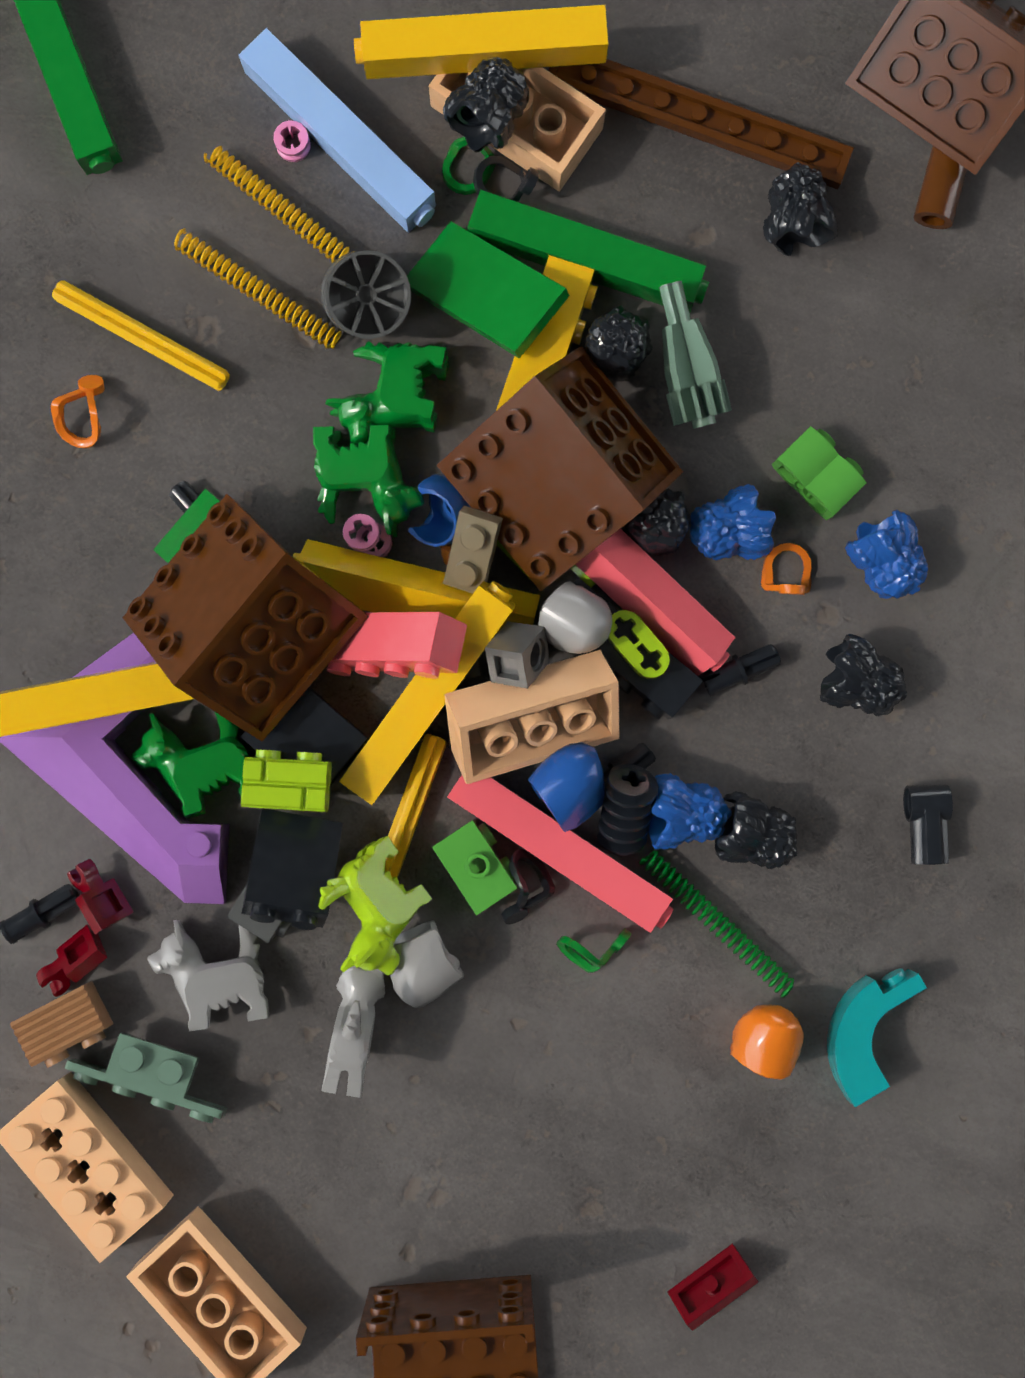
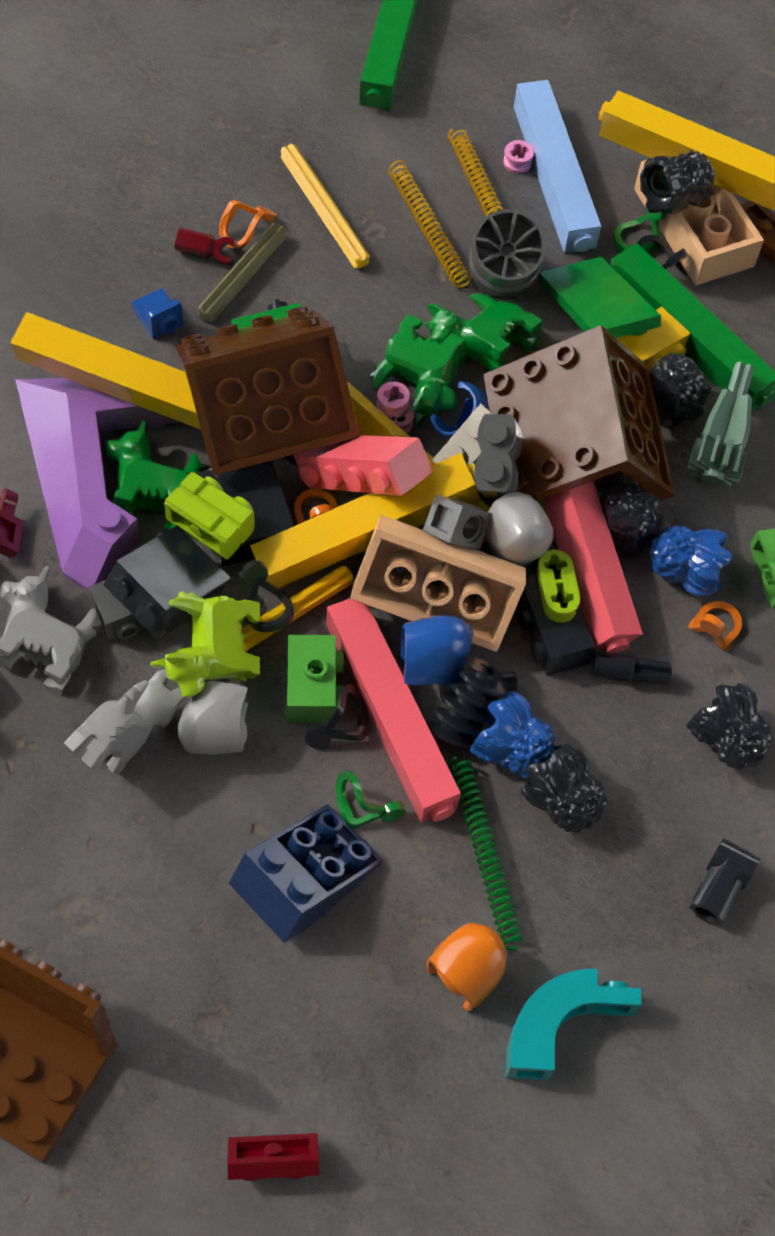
camera: 30 degrees right, 25 degrees down
(59, 465) = (203, 244): none -> dark red bar
(71, 573) = (158, 313): none -> blue bracket
(117, 470) = (241, 272): none -> olive axle
(362, 714) = (317, 510): none -> orange piece
(367, 809) = (256, 574): none -> black piece
(511, 562) = (500, 447): none -> dark grey brick
(585, 1041) = (303, 871): none -> dark blue slope

